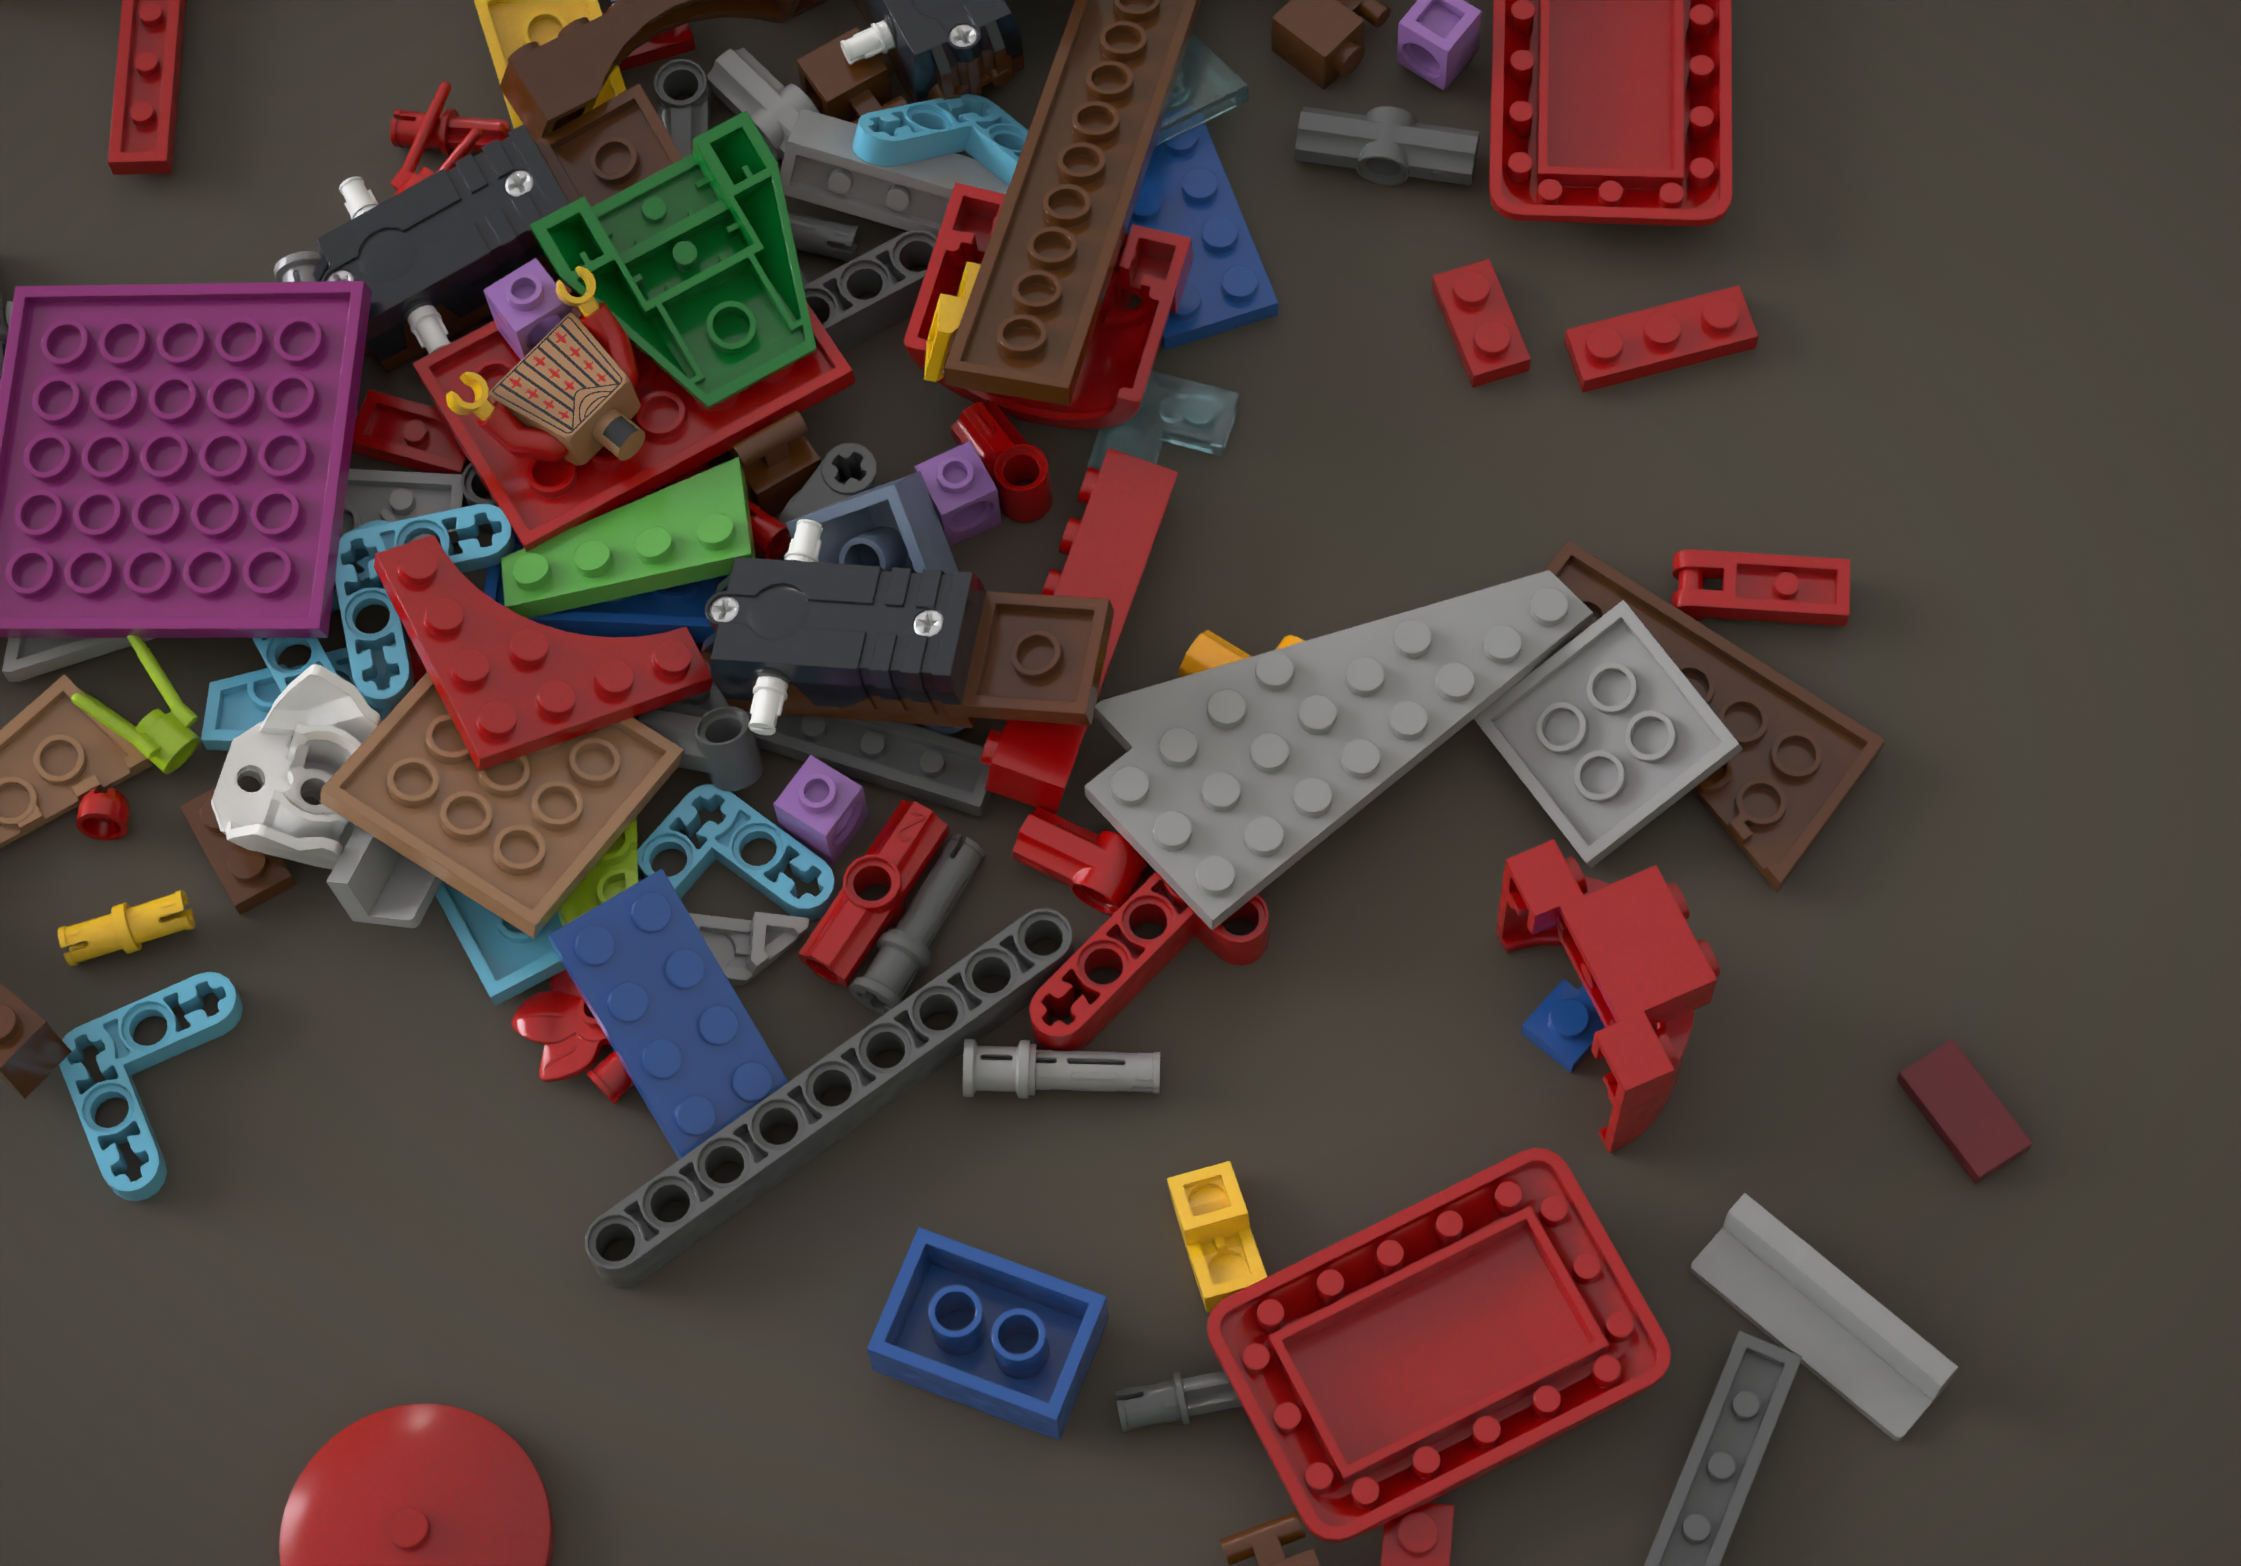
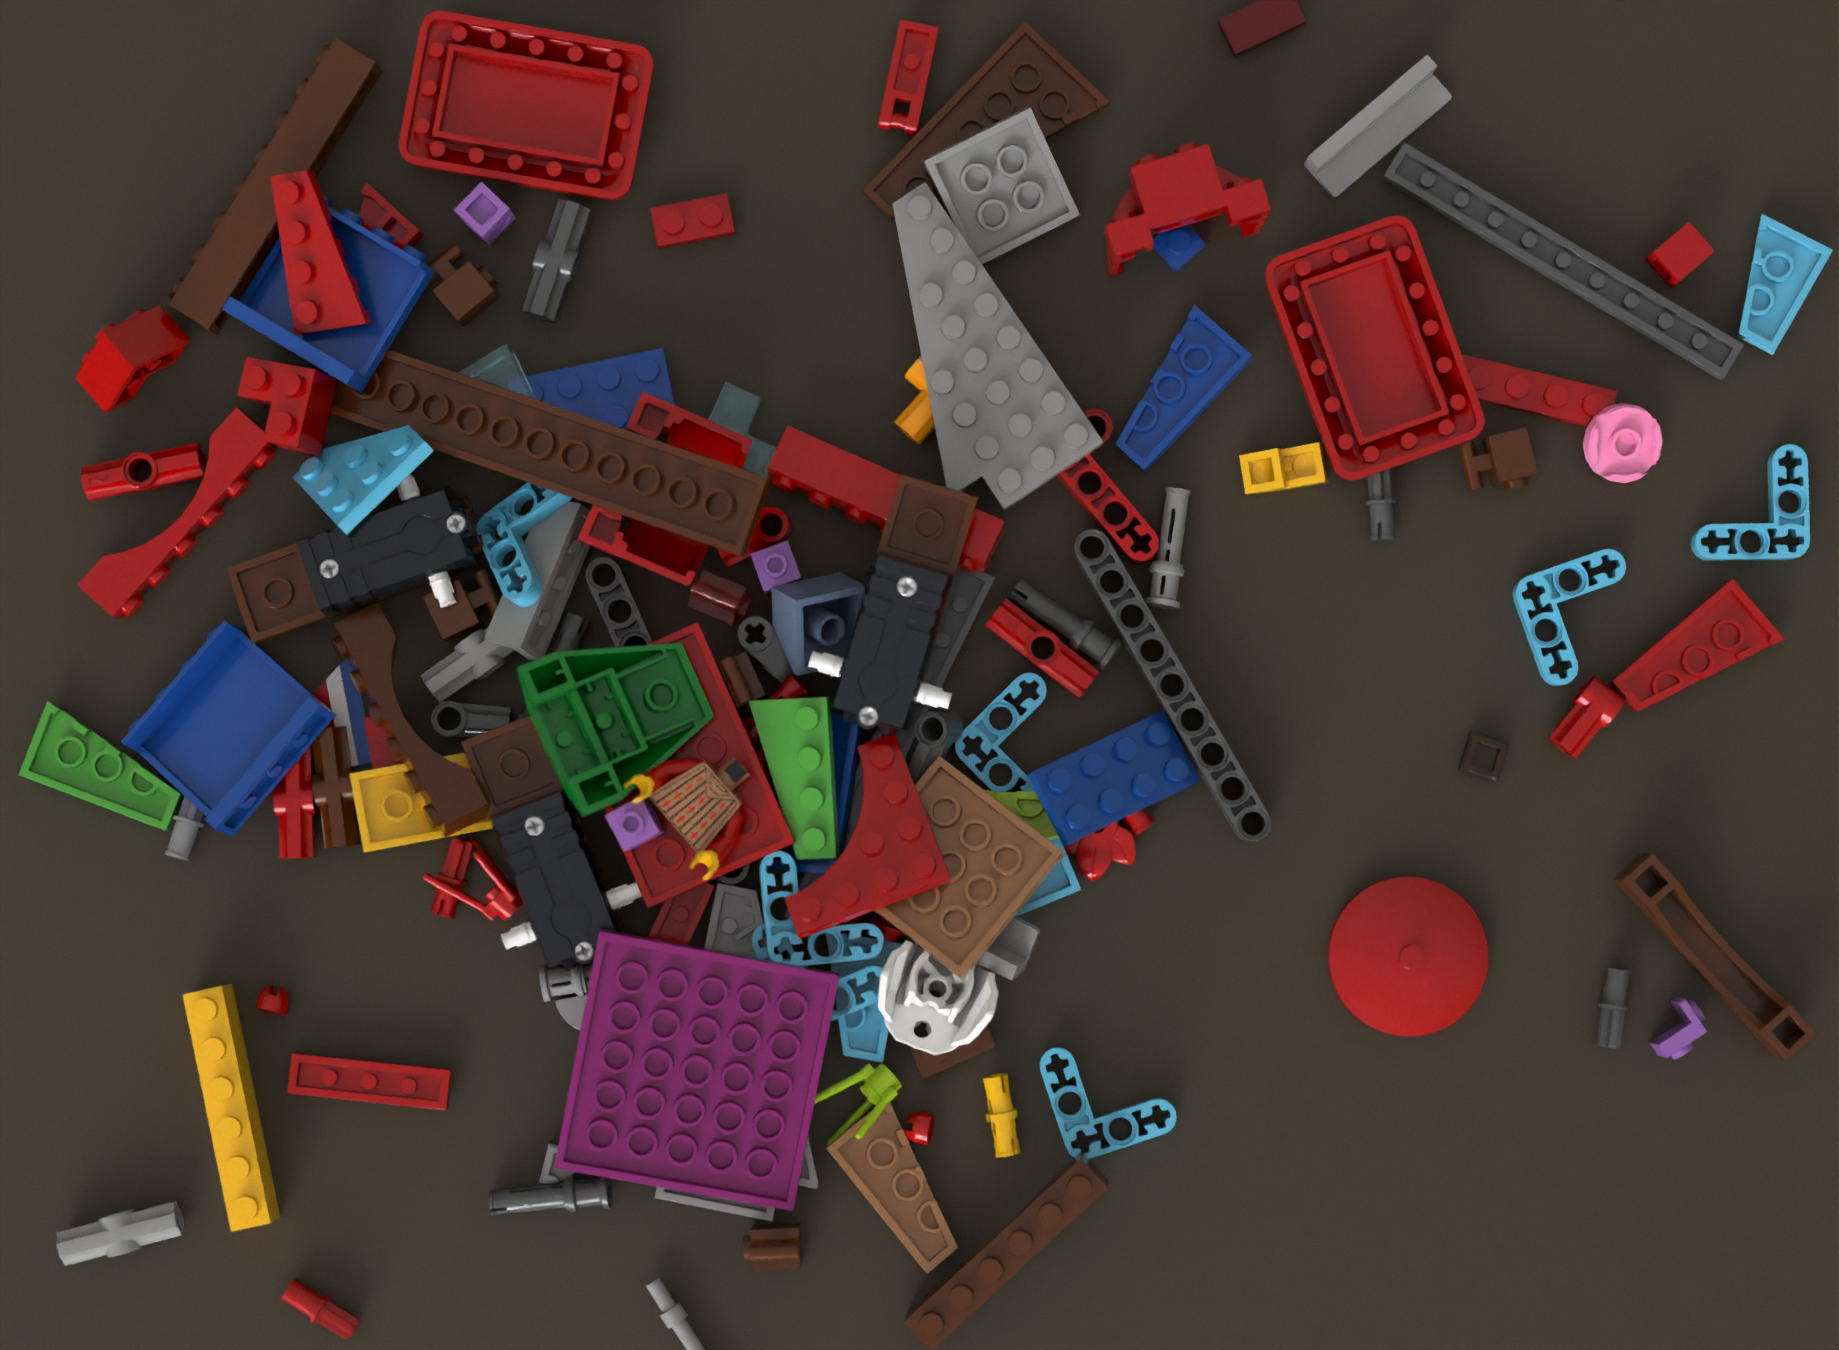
camera: 80 degrees left, 20 degrees up
(749, 946) = (1062, 732): light grey slope -> none
(821, 809) = (984, 675): medium lavender brick -> none
(903, 418) = (719, 598): none -> clear red brick
(946, 324) = (689, 552): yellow slope -> none
(988, 1333) = (1335, 607): blue brick -> none
(1096, 867) = (1039, 514): red piece -> none
(1348, 1071) = (1189, 380): none -> blue wing
(1660, 338) = (720, 109): red plate -> none

